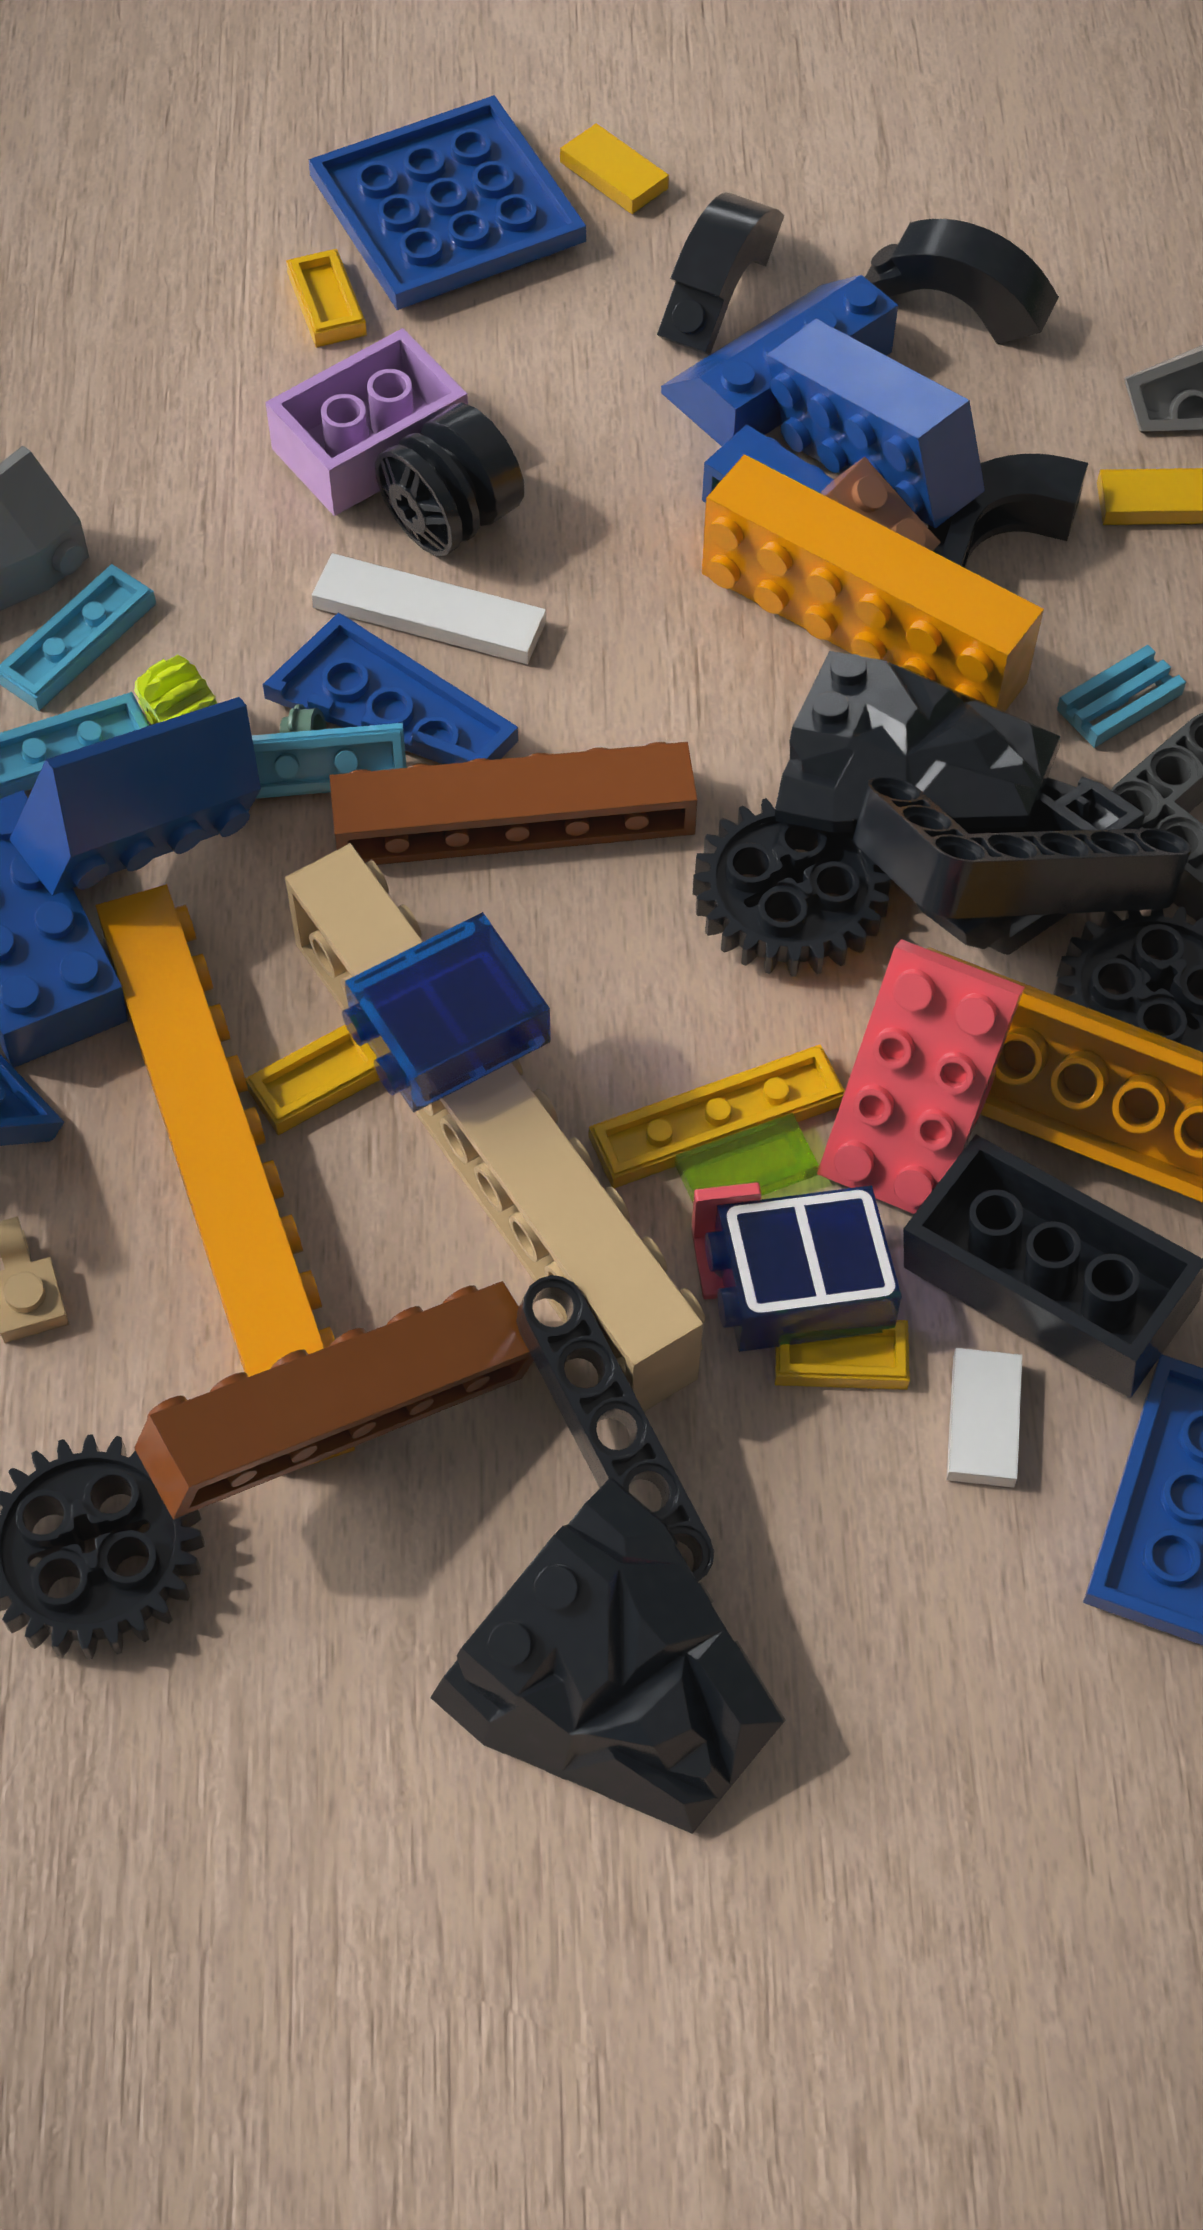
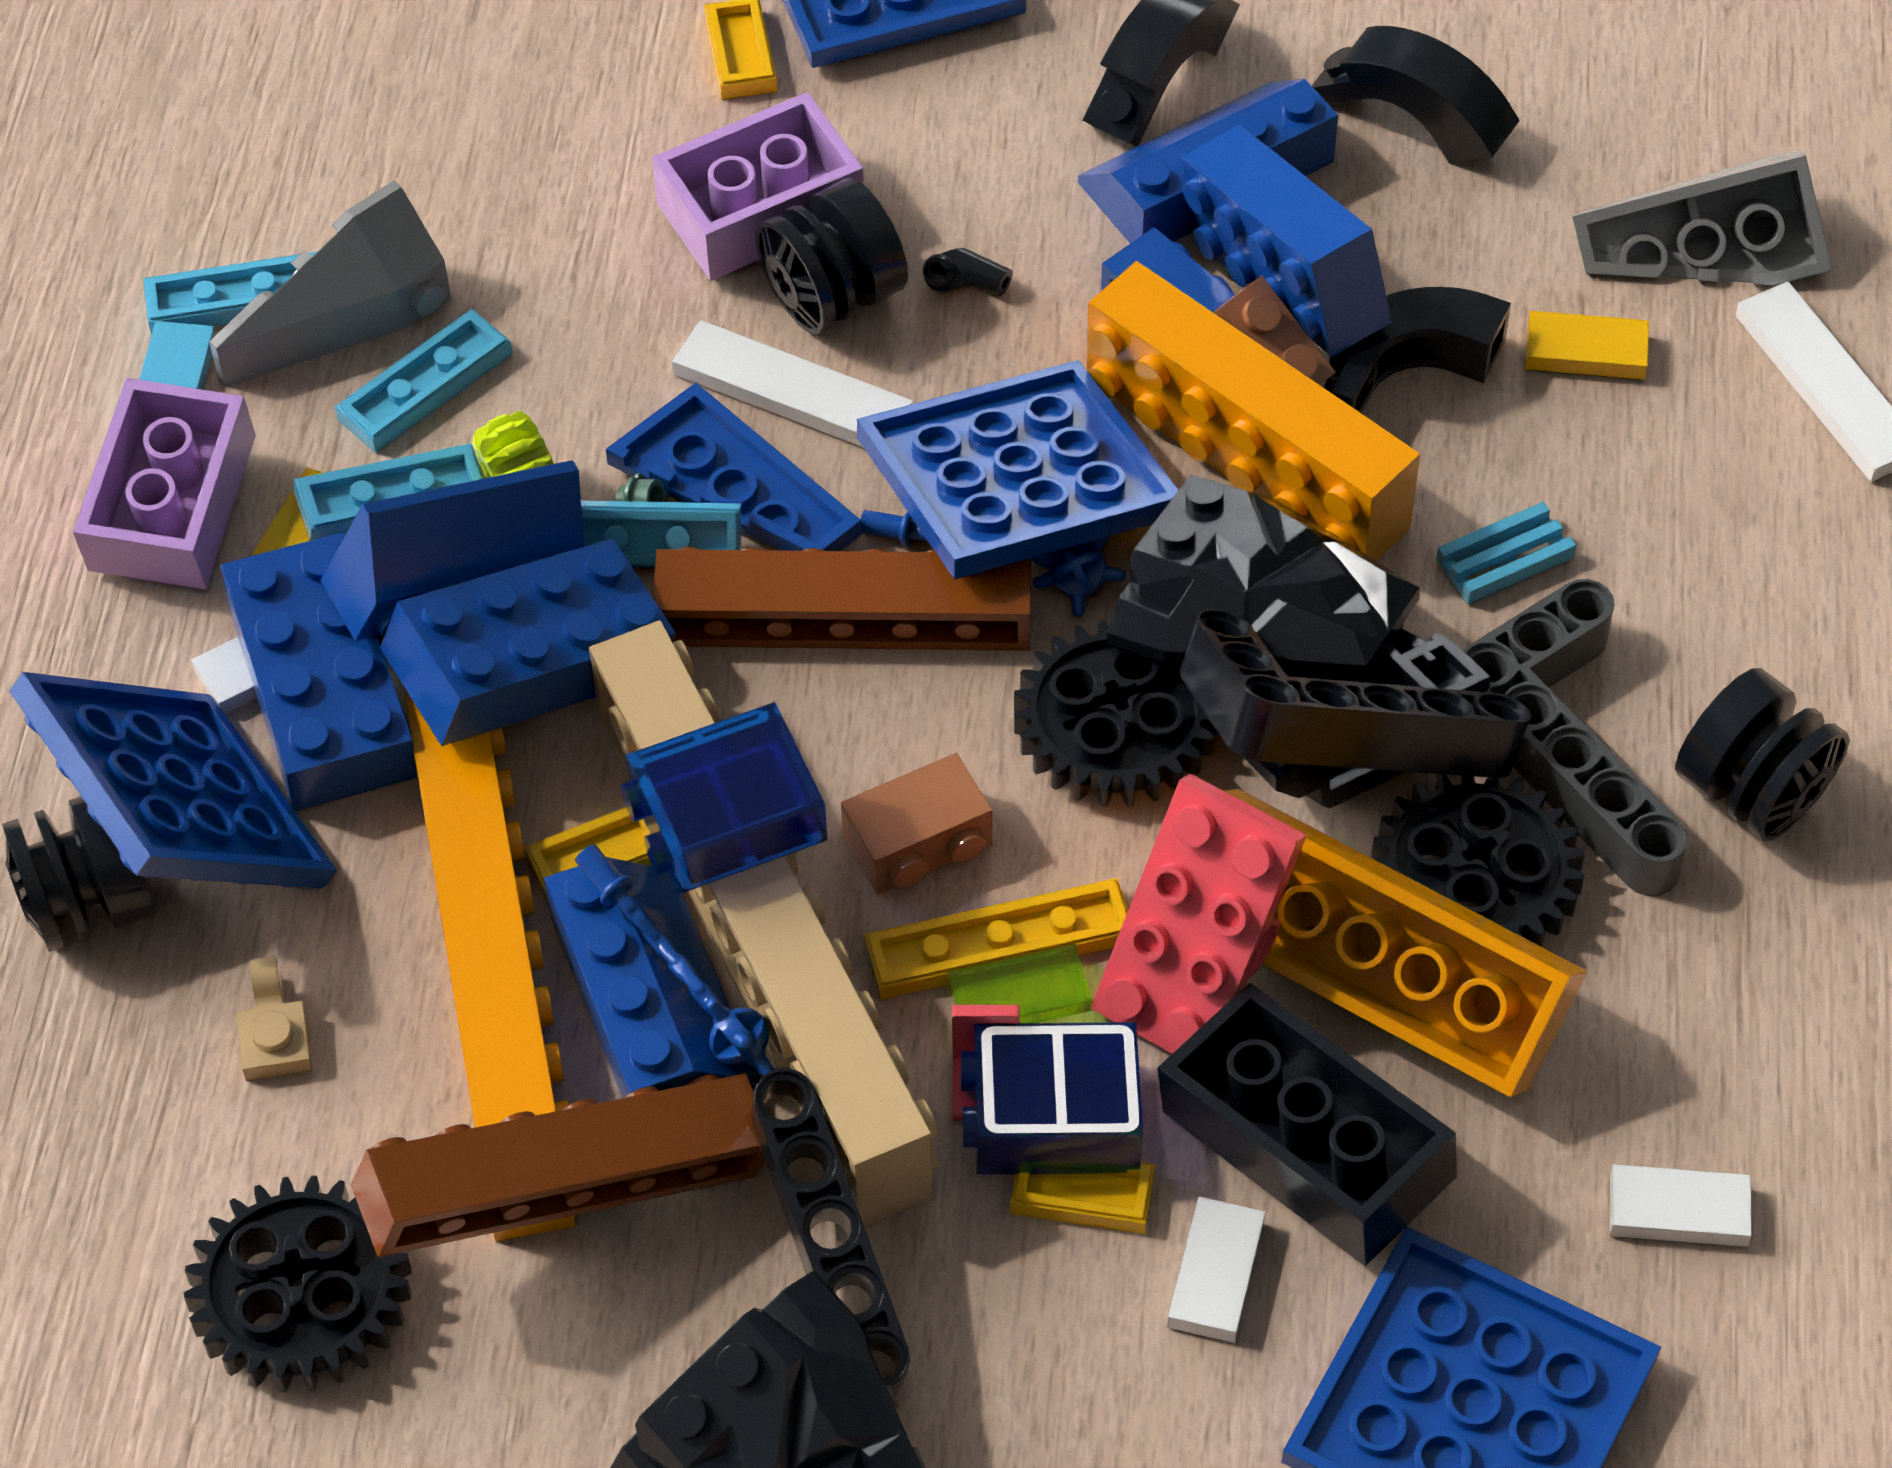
camera: 10 degrees right, 5 degrees down
(207, 877) = (514, 639): none -> blue brick
(385, 1197) = (637, 1005): none -> blue slope
(487, 1243) = (737, 1034): none -> blue piece
(572, 481) = (965, 268): none -> black arm
(622, 1014) = (917, 824): none -> nougat brick
(659, 663) = (1017, 468): none -> blue plate
(726, 752) = (1073, 570): none -> blue piece

